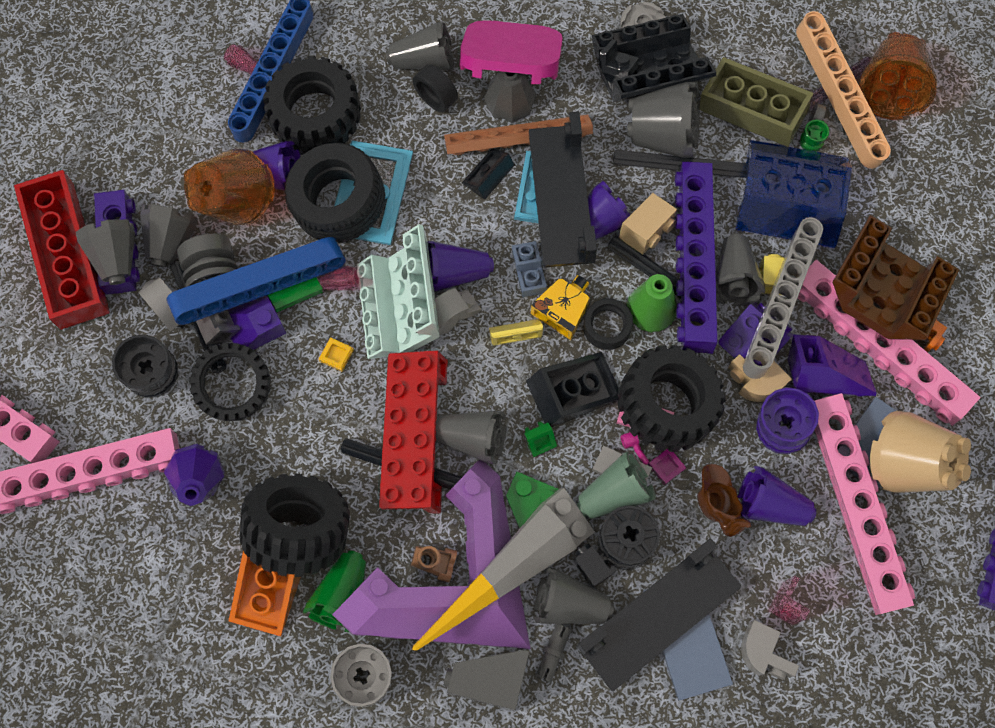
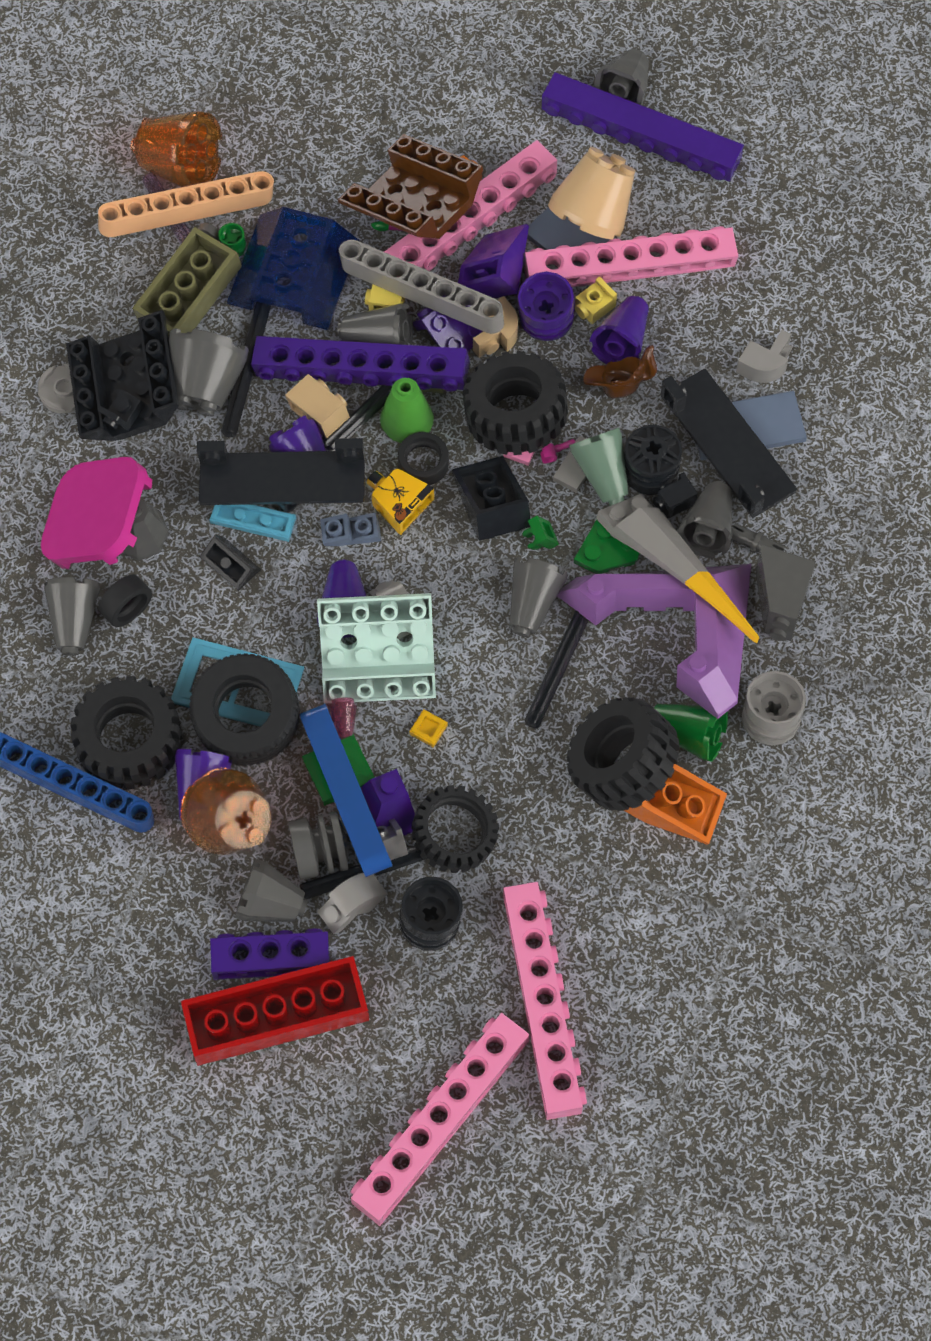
camera: 85 degrees left, 5 degrees down
(109, 248) = (294, 939): dark grey cone -> none
(194, 474) = (560, 862): dark purple cone -> none
(240, 59) = (47, 816): clear pink cone -> none
(411, 431) = (524, 650): red bracket -> none
(441, 561) = (661, 640): medium nougat plate -> none
(504, 136) = (189, 528): nougat plate -> none
(516, 332) = (420, 547): light yellow slope -> none
(666, 466) = (579, 423): magenta tile -> none
(785, 607) = (722, 333): clear pink panel -> none
(803, 480) = (604, 301): none -> light yellow brick

